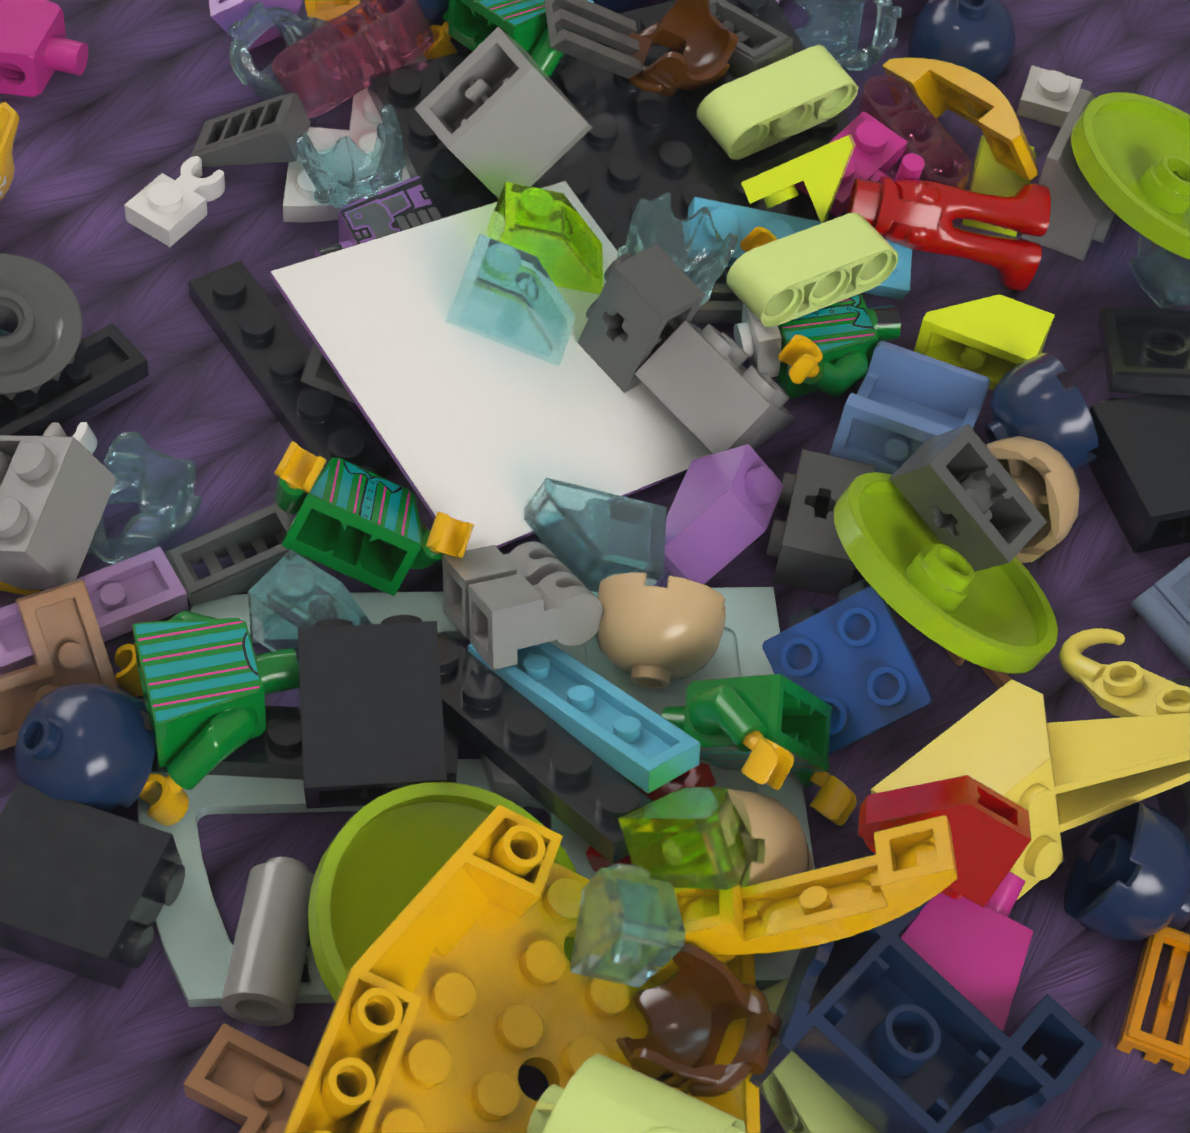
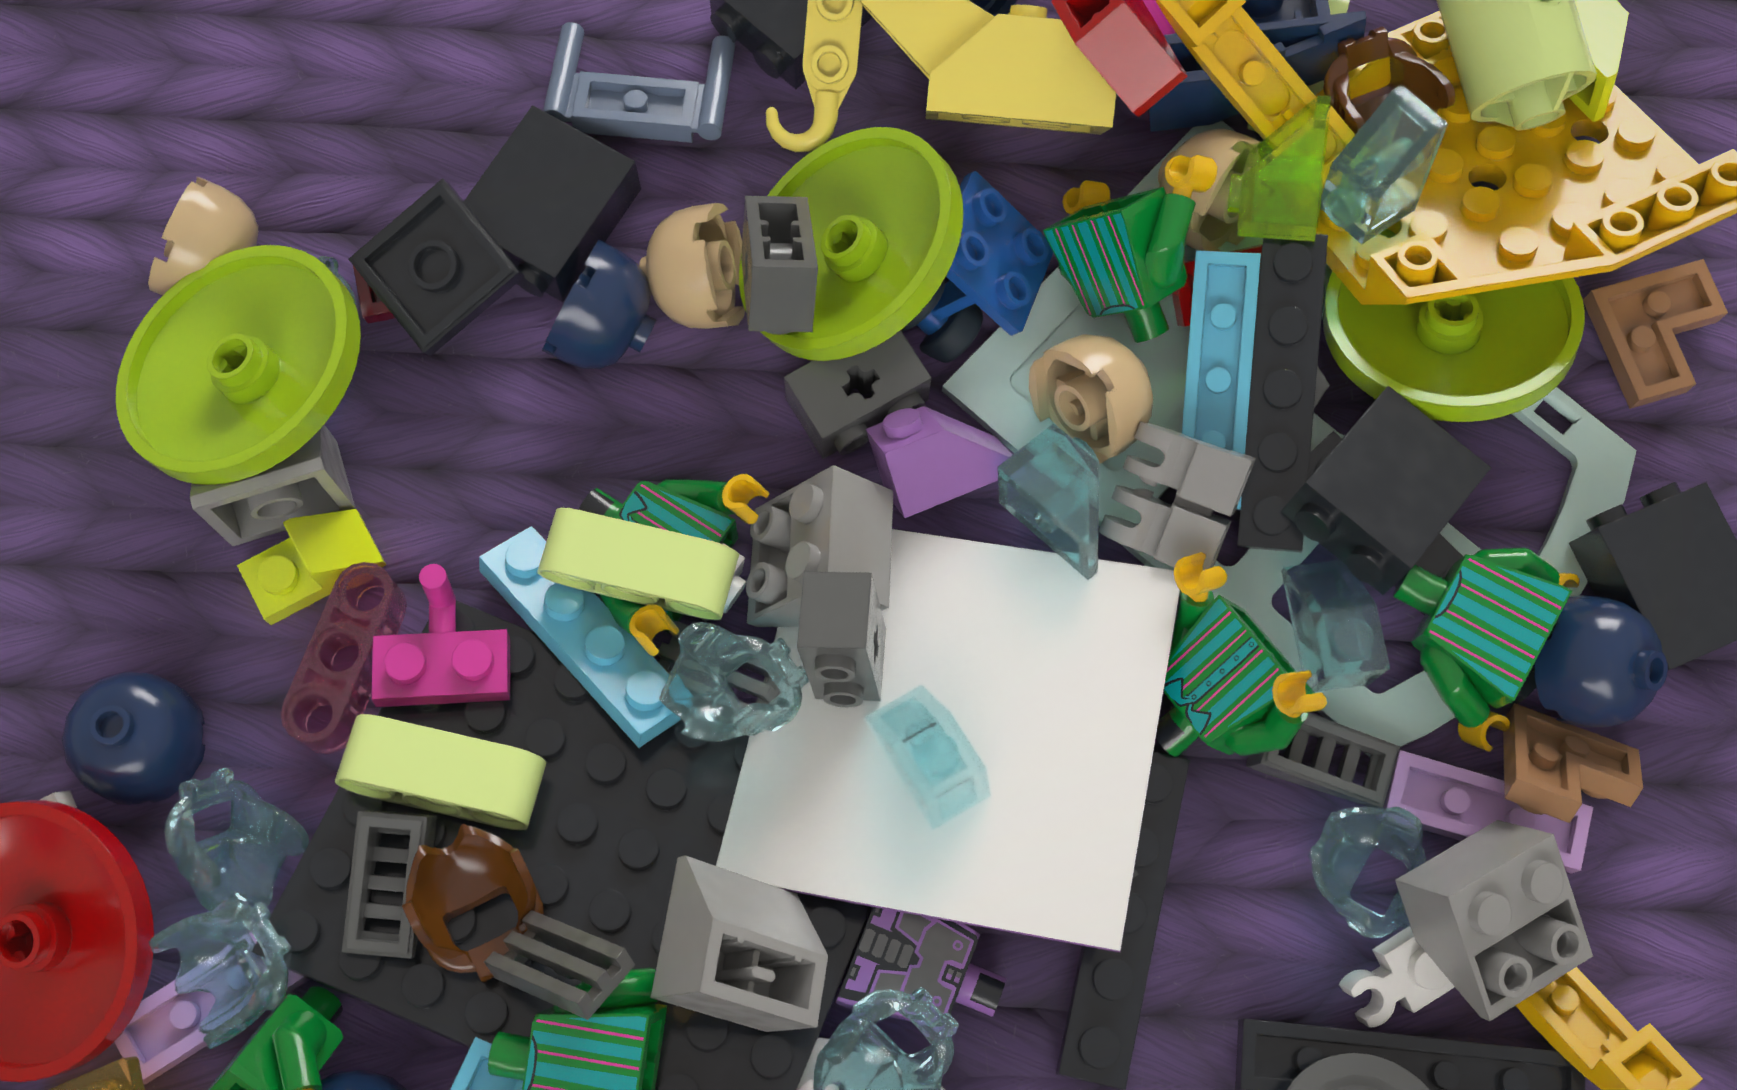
camera: 130 degrees left, 20 degrees up
(269, 944) = (1569, 419): light grey brick -> none
(552, 230) = (831, 797): clear neon green slope -> none
(819, 169) = (519, 656): neon yellow slope -> none
(903, 405) = (697, 401): medium blue panel -> none
(922, 213) = (441, 514): red piece -> none
(975, 99) = (305, 537): yellow slope -> none
(985, 335) = (532, 415): neon yellow slope -> none
(1048, 96) = (138, 612): white plate -> none

